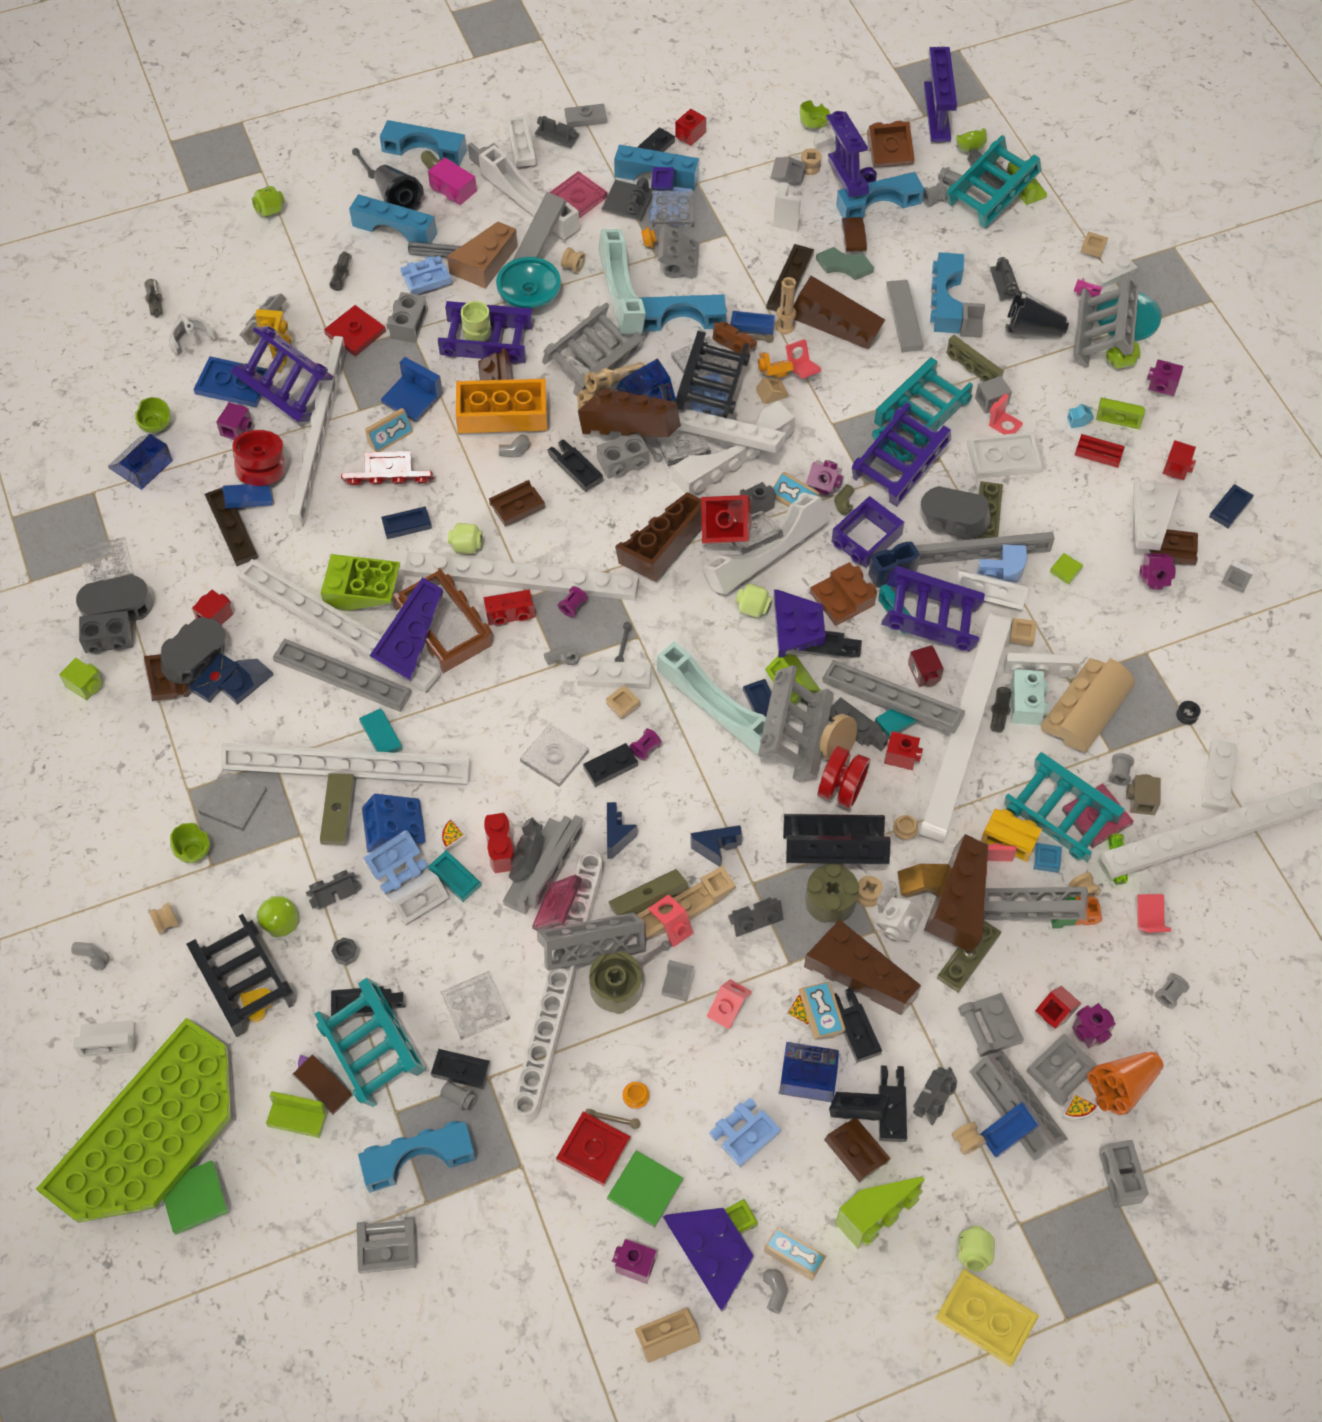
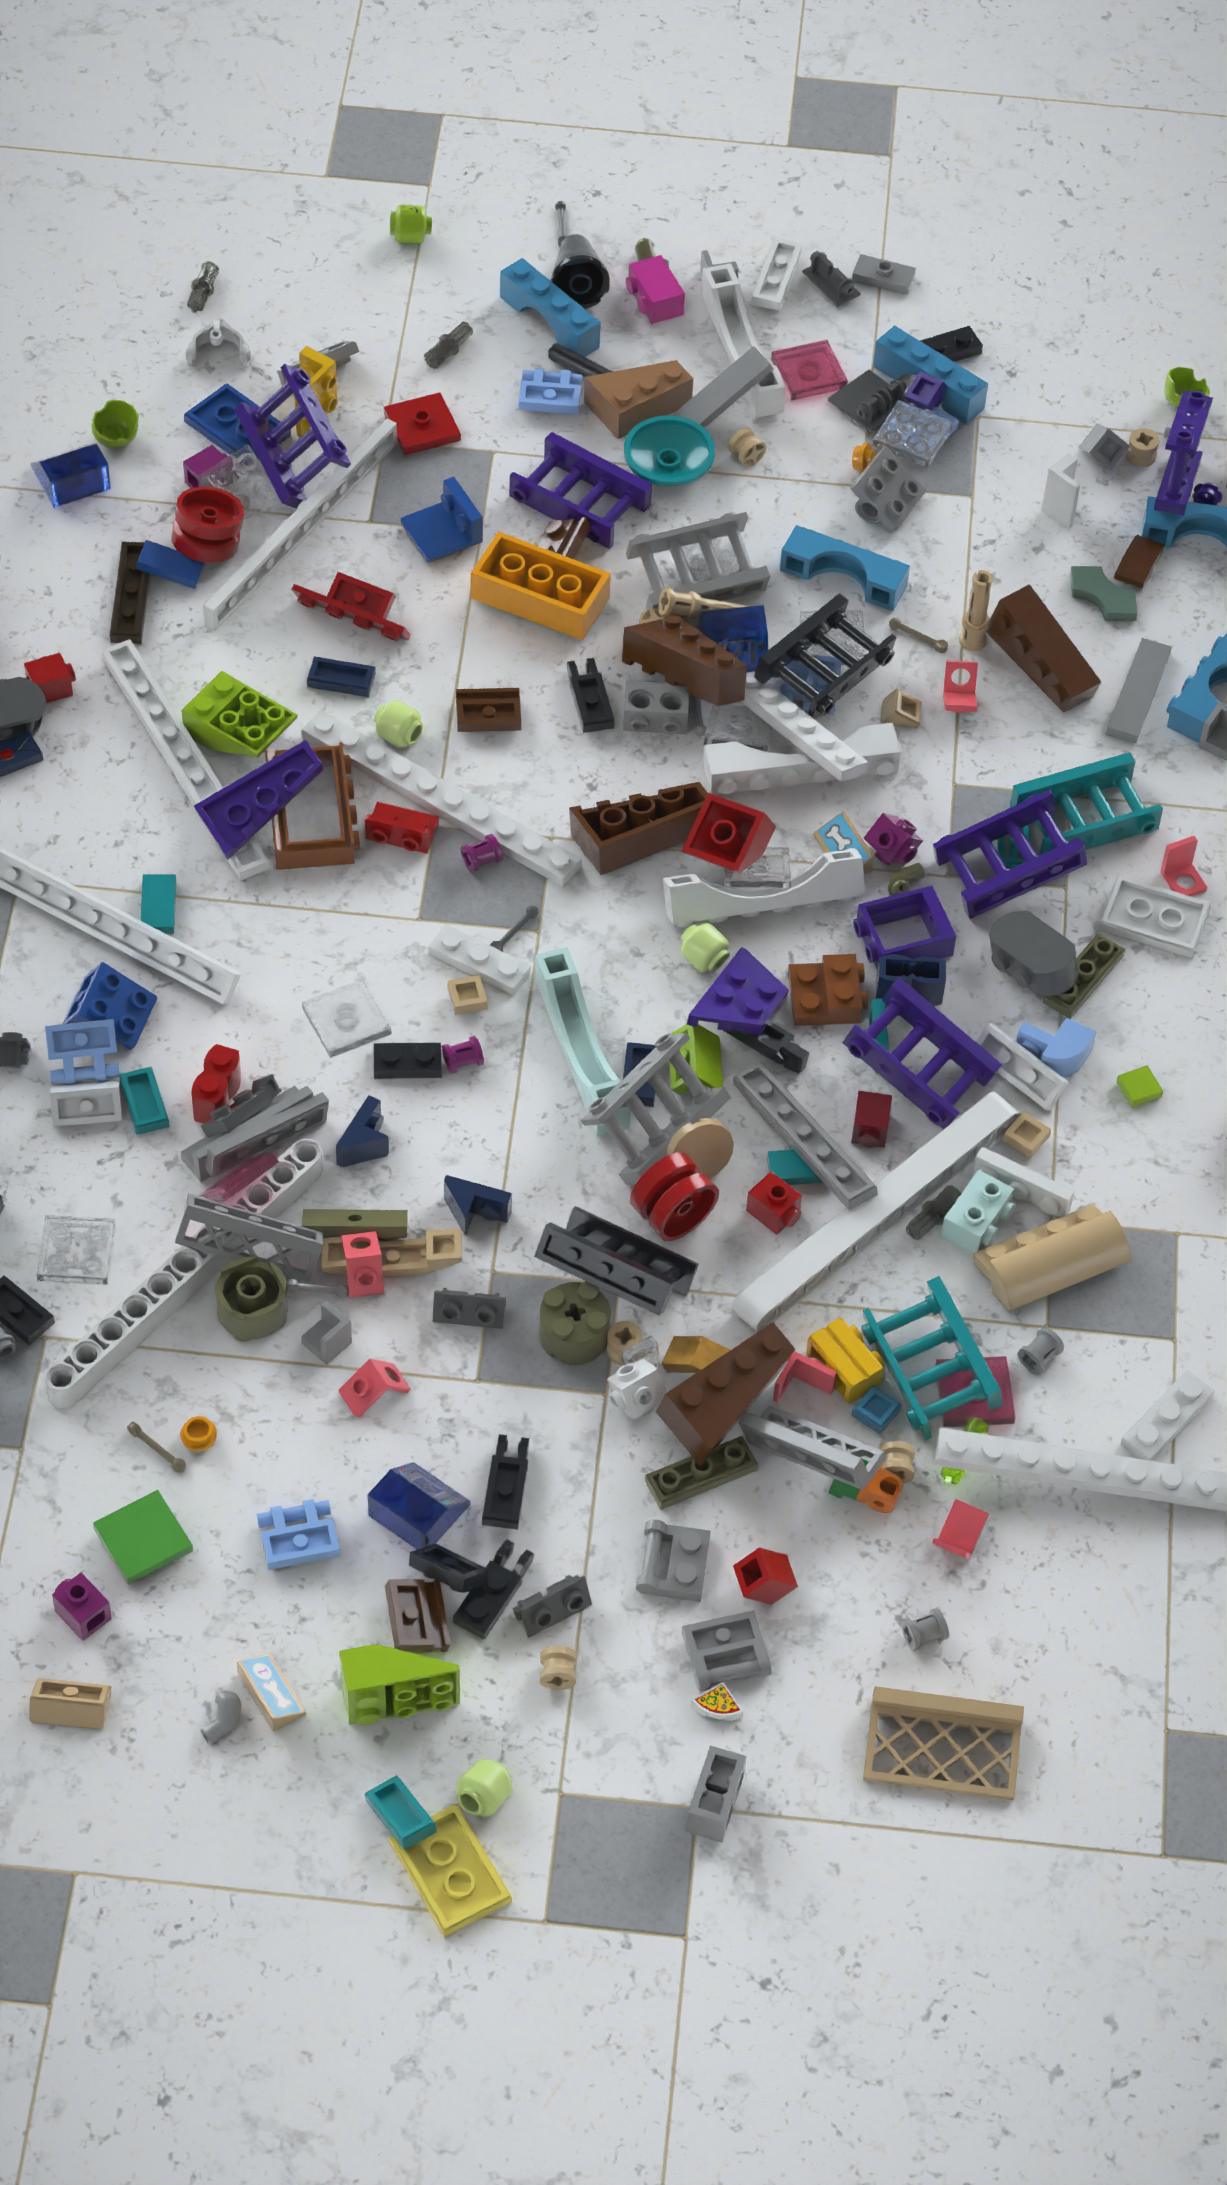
camera: 25 degrees right, 5 degrees down
(246, 680) = (45, 774): dark blue slope -> none
(262, 415) = (244, 478): none -> clear tile
(338, 796) = (54, 964): olive tile -> none
(342, 675) = (156, 819): light grey tile -> none
(388, 430) = (386, 559): slope -> none
(400, 137) = (626, 210): dark azure arch -> none
(407, 317) = (495, 433): light grey brick -> none
(451, 835) = (167, 1054): tile -> none
(476, 321) = (568, 470): yellowish green wheel -> none
(516, 448) = (531, 644): light grey arm -> none
(562, 654) = (431, 909): light grey arm -> none
(593, 1148) = (112, 1466): red plate -> none
(627, 306) = (786, 495): light aqua arch -> none
(690, 127) = (1009, 341): red brick -> none
(713, 1250) = (179, 1639): dark purple wing -> none
(728, 337) = (885, 617): dark orange hinge -> none
(741, 1216) = (231, 1623): lime tile -> none
(753, 322) = (930, 617): blue tile -> none
(761, 497) = (793, 831): dark grey brick -> none
(777, 369) = (924, 687): light orange bracket -> none
(795, 268) = (1035, 570): dark brown tile -> none
(797, 1012) = (451, 1437): tile -> none
(822, 1010) = (475, 1446): slope -> none
(858, 965) = (551, 1414): reddish brown wedge -> none
(867, 730) = (747, 1159): dark grey hinge -> none
(905, 827) = (720, 1292): tan plate -> none
(933, 1295) = (400, 1812): none -> teal tile
(972, 360) = (1189, 784): olive tile -> none
(982, 548) = (1040, 1012): light grey tile -> none
(990, 392) = (1188, 824): light grey panel -> none
(1004, 1095) = (637, 1658): light grey fence -> none
(1010, 1129) = (612, 1680): blue tile -> none
(1094, 1025) = (796, 1618): magenta brick -> none
(1124, 1081) = (793, 1695): orange cone -> none
(1144, 794) = (1049, 1392): dark tan brick -> none
(1187, 719) = (1186, 1333): black bush -> none
(1223, 1039) = (946, 1711): none -> tan fence

